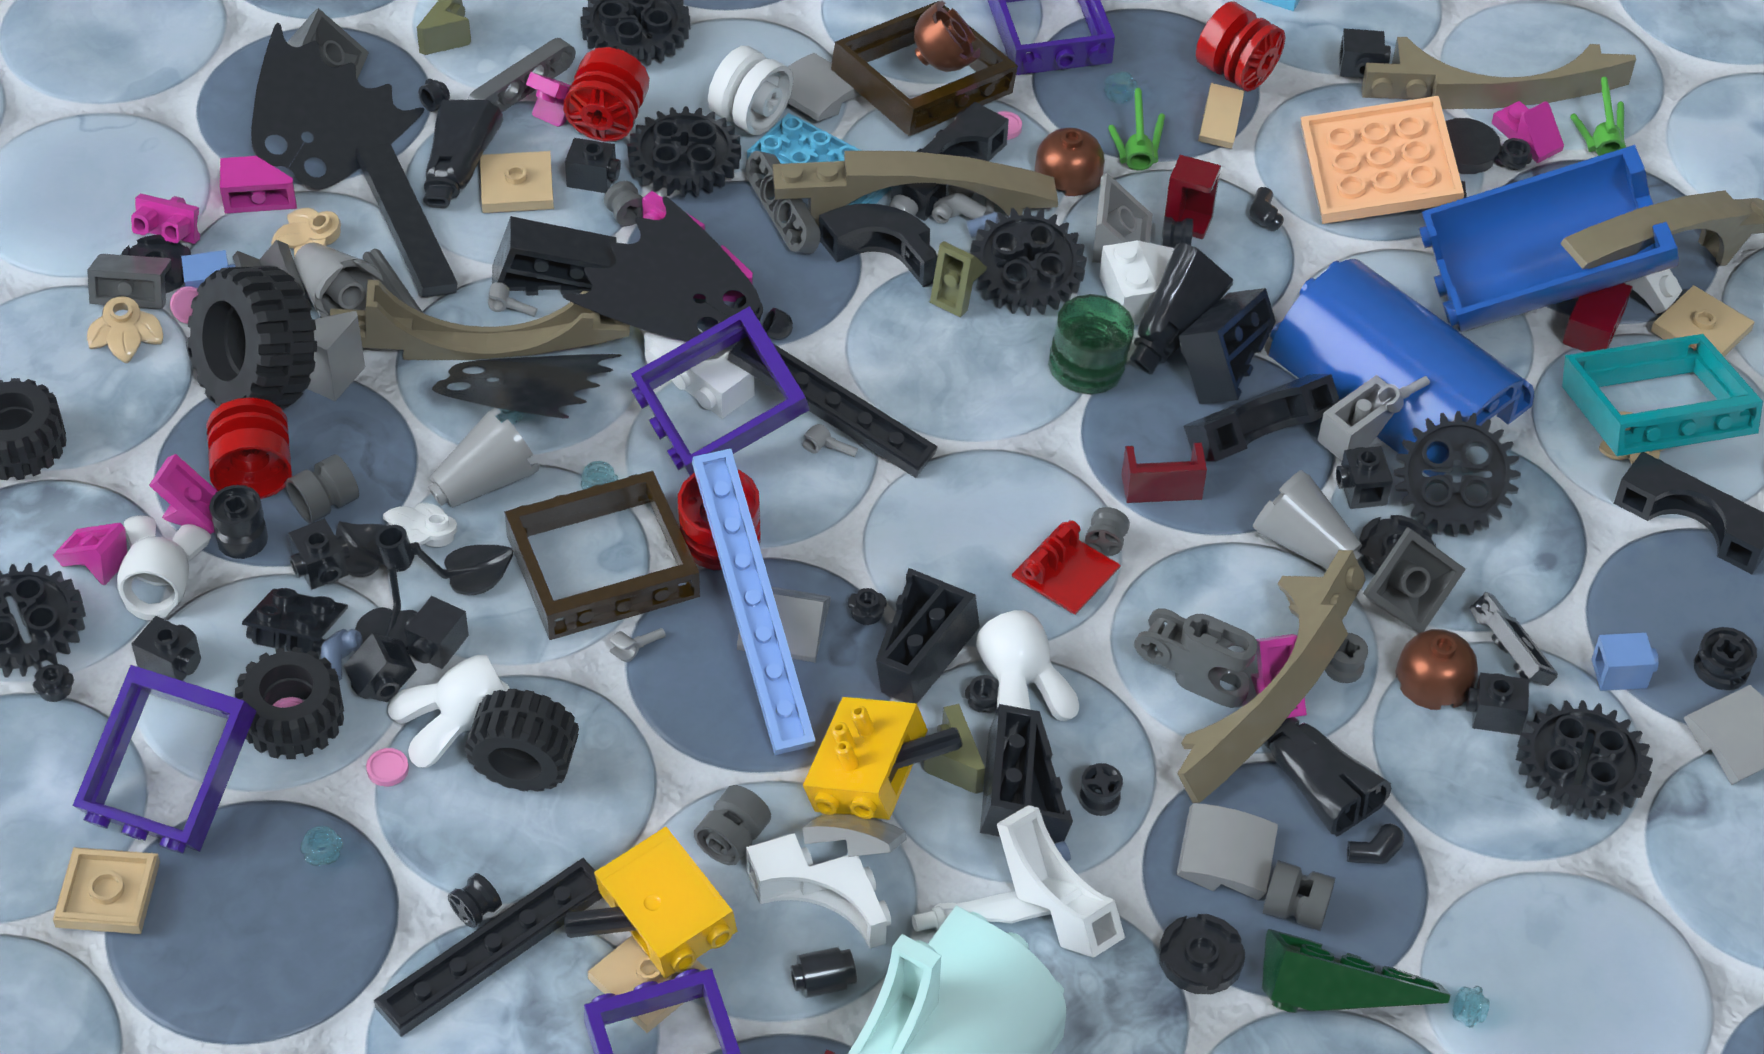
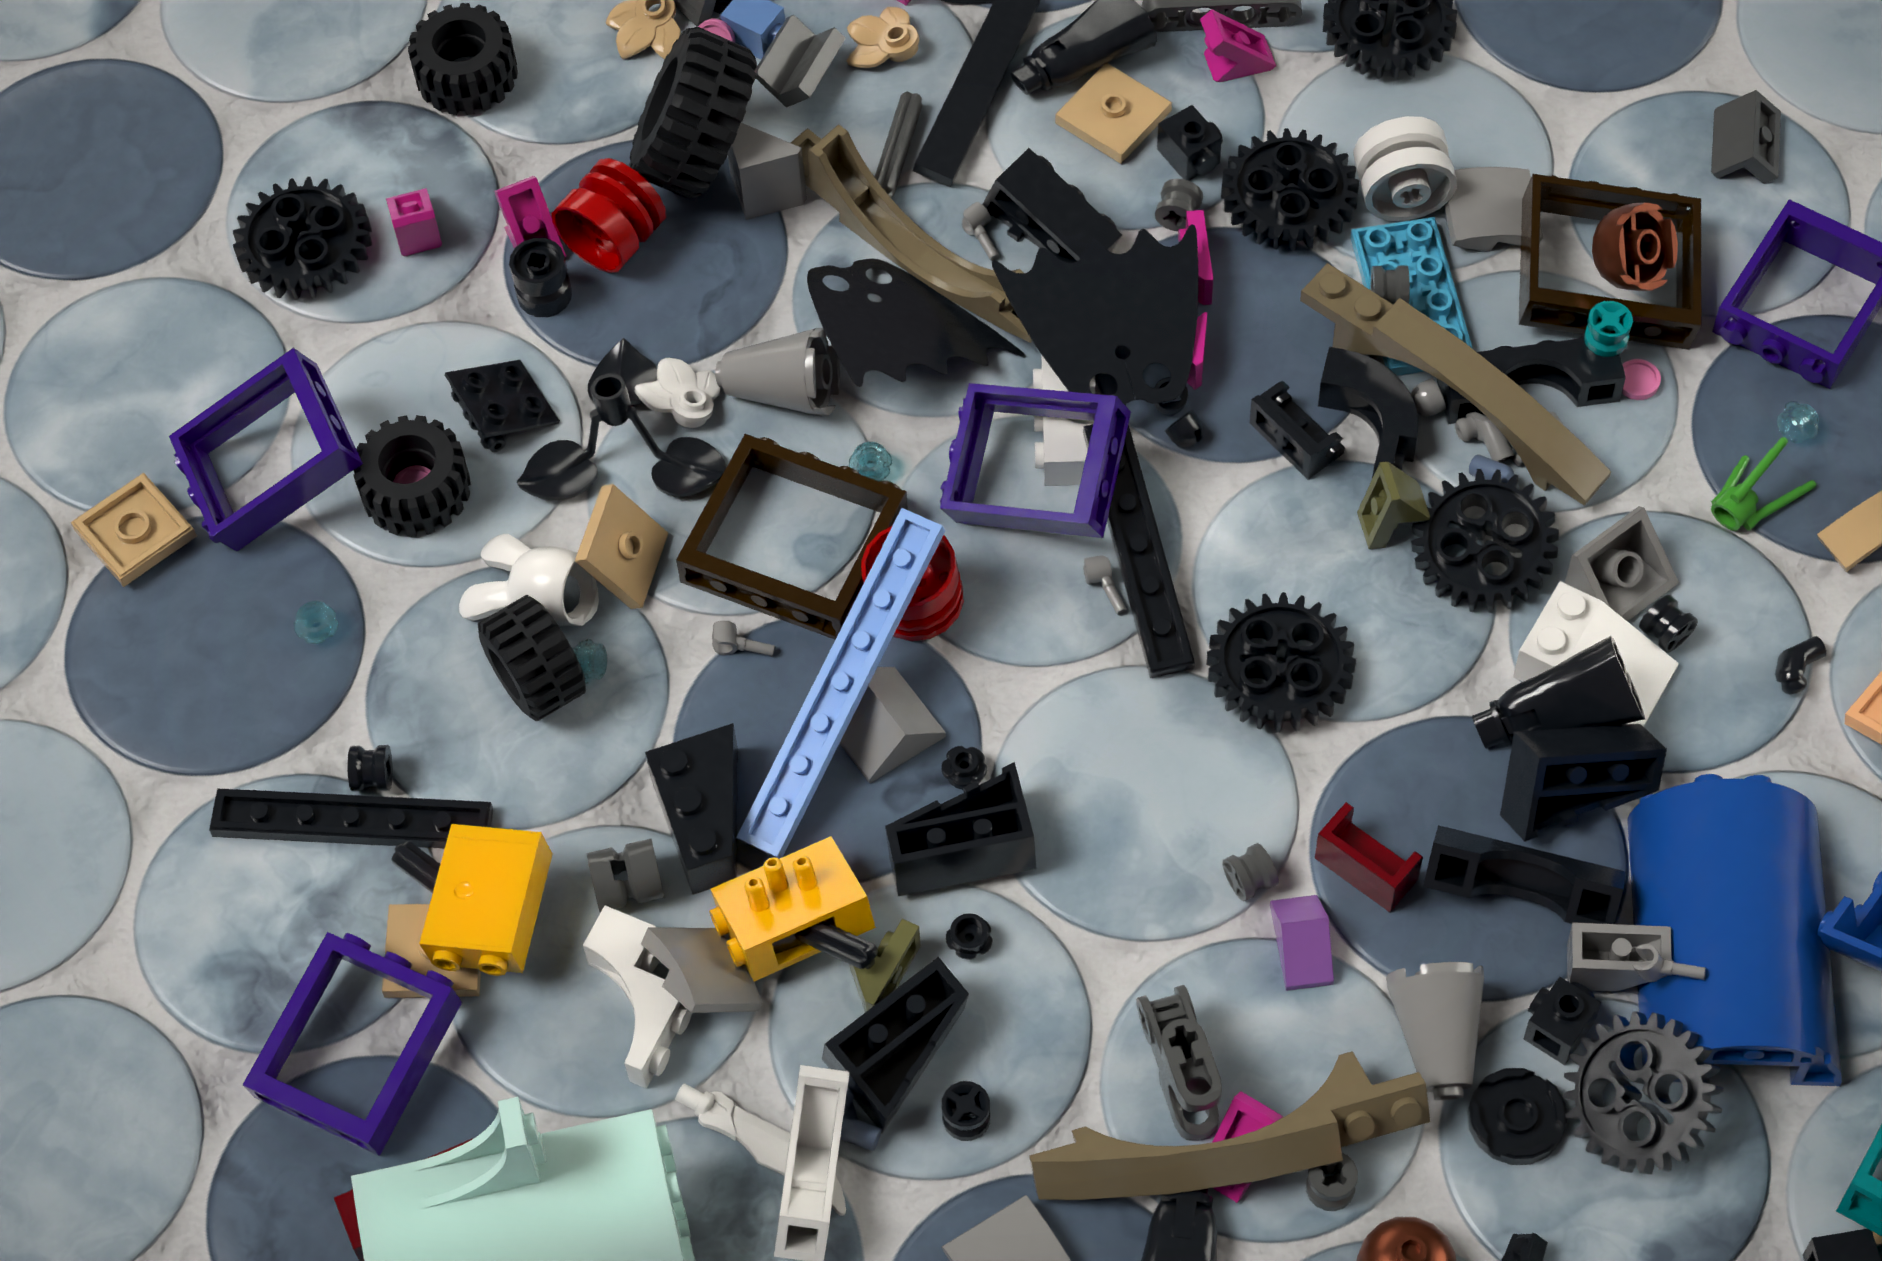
camera: 50 degrees right, 10 degrees up
(56, 689) = (280, 322): black plate -> none
(157, 563) = (442, 267): white piece -> none
(167, 649) = (378, 353): black brick -> none
(318, 490) = (633, 296): dark grey wheel -> none
(318, 554) = (569, 356): black brick -> none
(334, 278) = (846, 98): light grey cone -> none
(340, 646) = (500, 455): sand blue arm -> none
(379, 668) = (506, 500): black brick -> none
(387, 767) = (438, 593): bright pink piece -> none
(436, 632) = (575, 500): black brick -> none
(498, 636) = (621, 546): none -> tan plate
(606, 94) = (1268, 79): red wheel -> none
(731, 747) = (699, 801): none -> black wedge
(798, 241) = (1313, 328): dark grey beam -> none
(820, 151) = (1391, 283): none -> dark grey wheel
(823, 972) = (558, 1069): black brick -> none
(844, 284) = (1293, 431): none -> black hinge
(974, 96) = (1605, 318): none -> teal wheel
(988, 408) = (1282, 627): none -> black gear
(1019, 655) = (1028, 925): white piece -> none
(1066, 568) = (1176, 878): red hinge -> none
(1072, 159) = (1652, 467): copper cylinder -> none
(1091, 344) = (1442, 651): clear green wheel -> none
(1178, 546) = (1303, 942): none -> medium lavender slope
(1193, 193) = (1717, 593): dark red panel -> none
(1414, 581) = (1463, 1163): dark grey slope -> none

